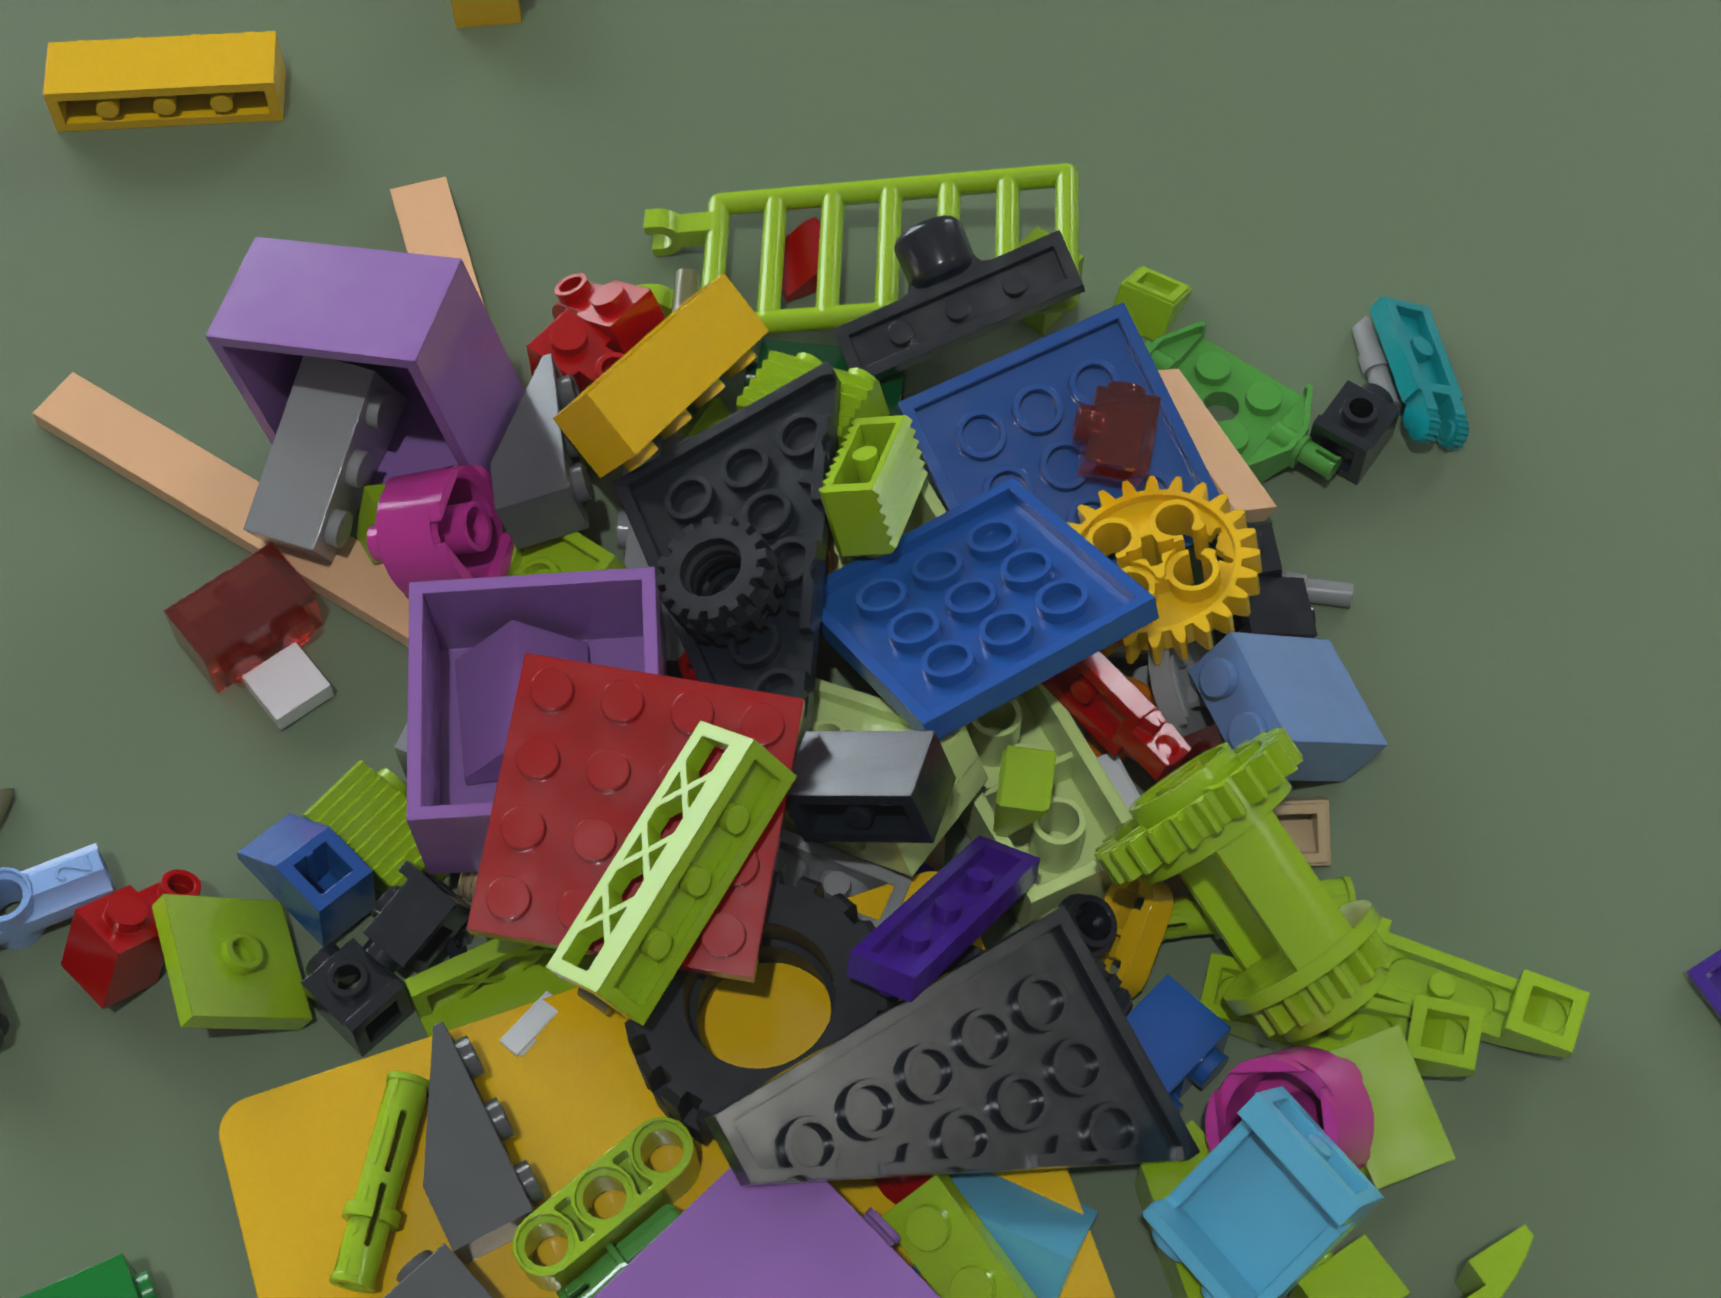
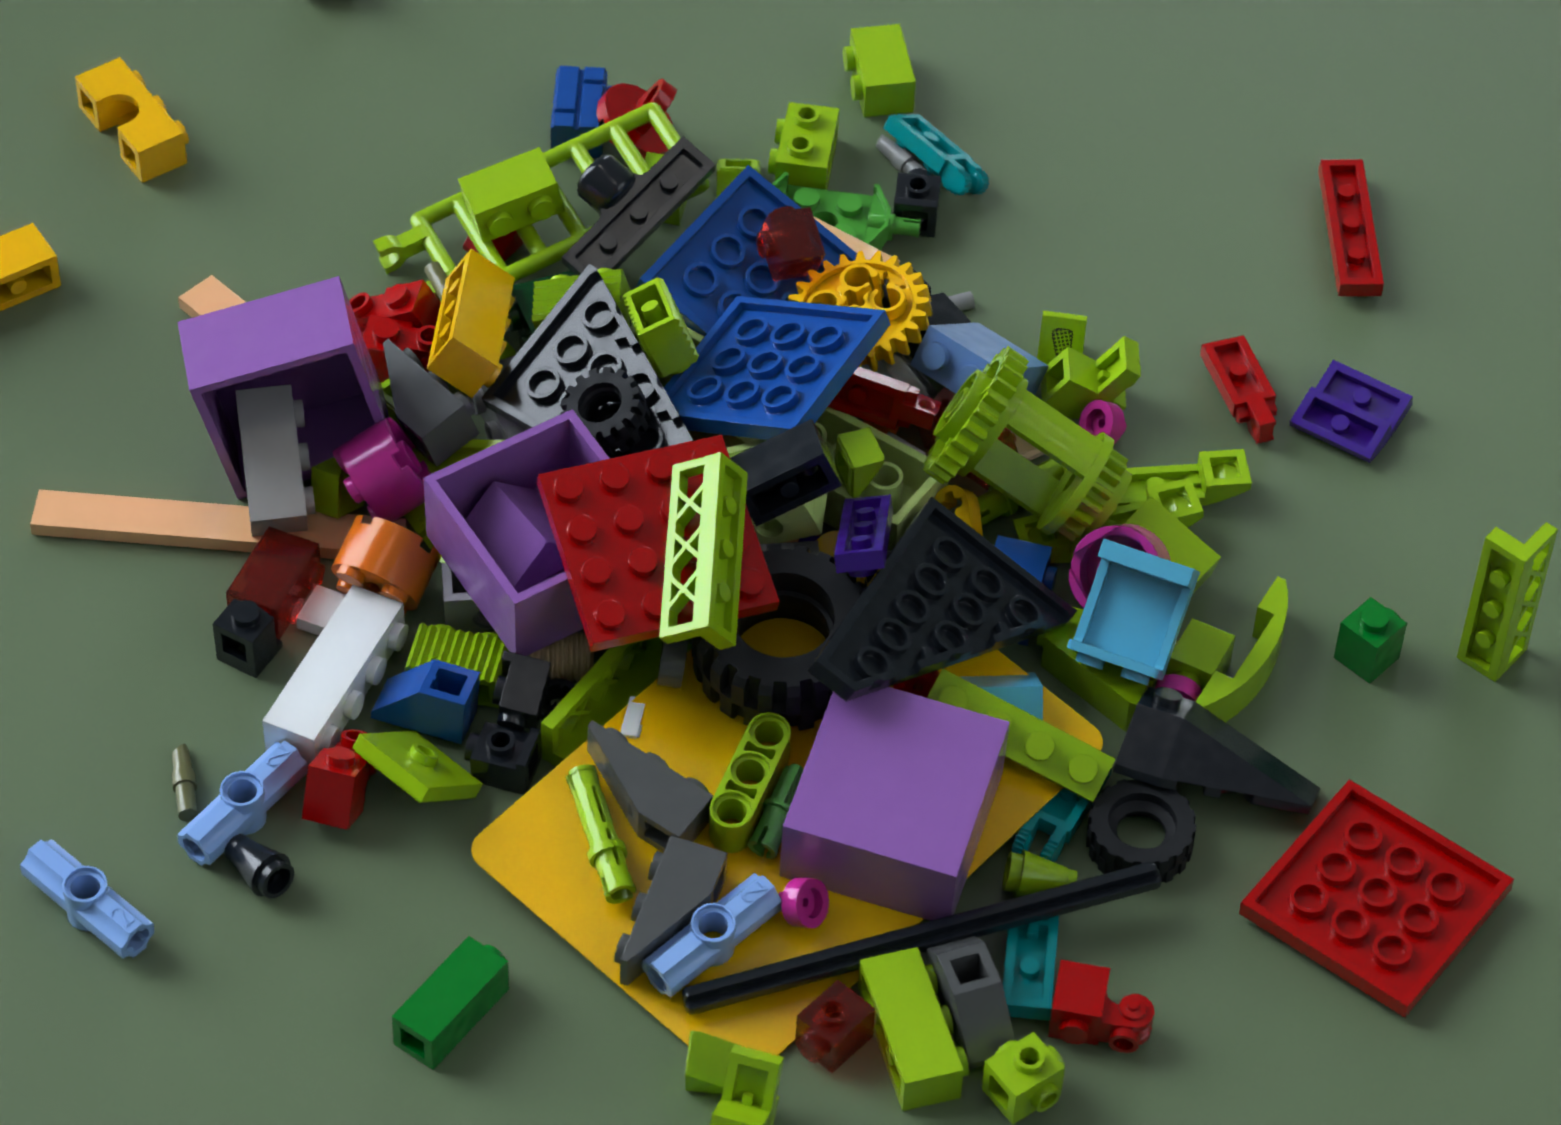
camera: 30 degrees left, 10 degrees down
(163, 678) = (251, 626): none -> black brick
(222, 783) = (337, 673): none -> white brick
(359, 658) = (385, 561): none -> orange brick
(823, 219) = (511, 194): none -> lime brick
(1007, 127) = (576, 103): none -> blue brick
(1064, 143) = (627, 97): none -> red tile
(1255, 295) = (806, 145): none -> lime brick
(1413, 227) = (880, 70): none -> lime brick
(1418, 860) = (1103, 417): none -> dark pink tile
(1431, 797) = (1078, 379): none -> lime brick
(1434, 710) = (1060, 332): none -> lime slope
(1648, 886) = (1242, 385): none -> red hinge

